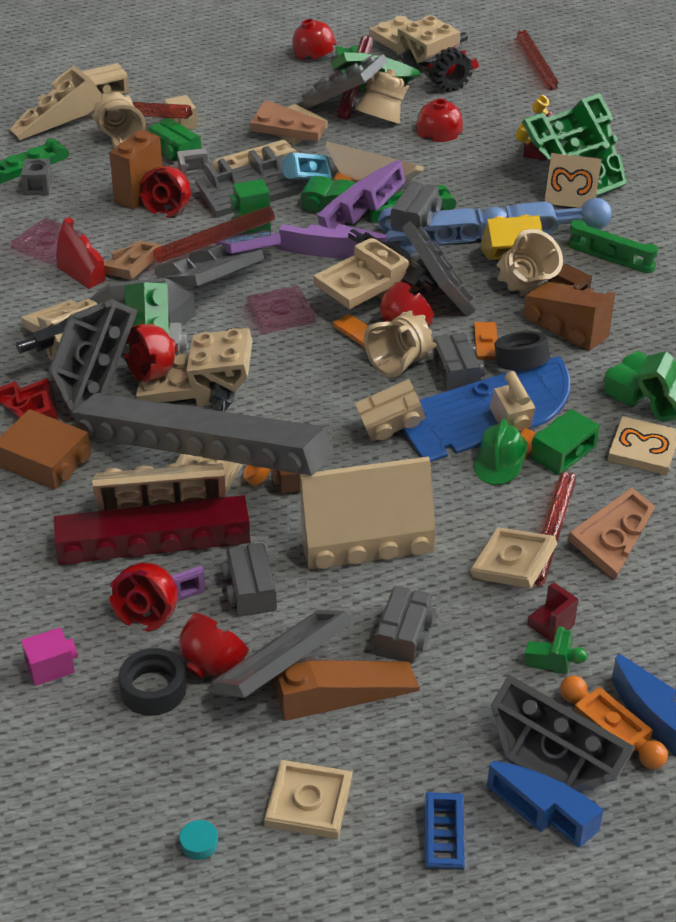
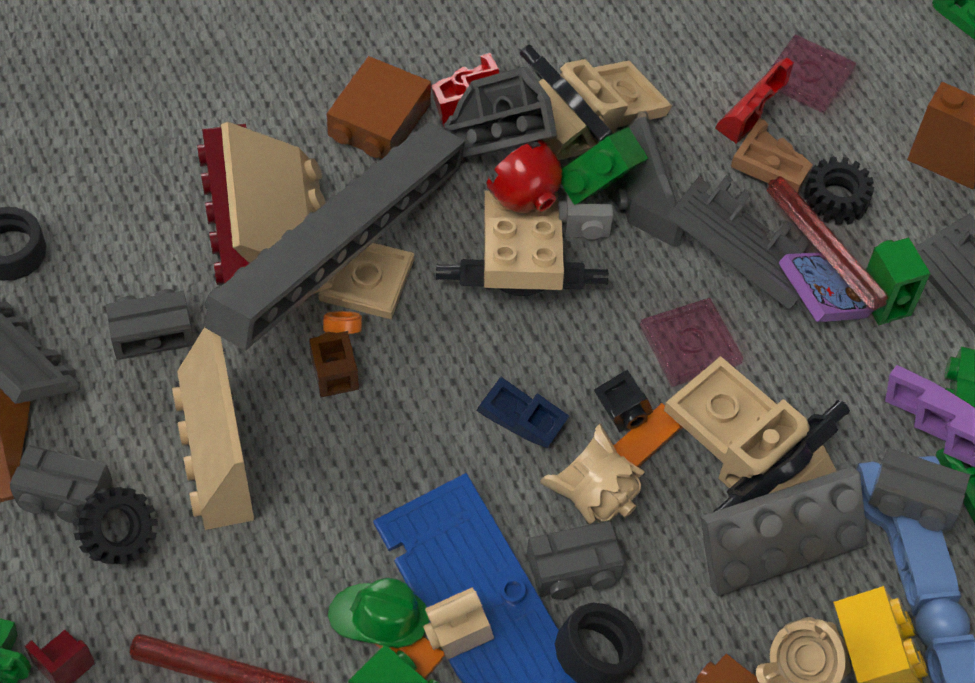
camera: 85 degrees right, 15 degrees up
(36, 176) = (944, 40): dark grey brick -> none
(49, 656) = (51, 149): dark pink brick -> none
(144, 589) = (125, 222): red cylinder -> none
(162, 229) = (845, 176): none -> black tyre
(165, 187) = (935, 182): red cylinder -> none
(190, 582) = (156, 264): medium lavender slope -> none
(209, 648) = (37, 282): red cylinder -> none
(321, 240) = (848, 387): medium lavender slope -> none
(336, 334) = (624, 401): none -> black bracket
(340, 385) = (519, 413): none -> dark blue slope
(391, 411) = (444, 464): tan brick -> none
(400, 300) = (678, 479): red cylinder -> none
(446, 580) = (90, 525): none -> black tyre
(484, 340) = (654, 608): orange piece -> none
(514, 557) = (167, 616): tan tile -> none

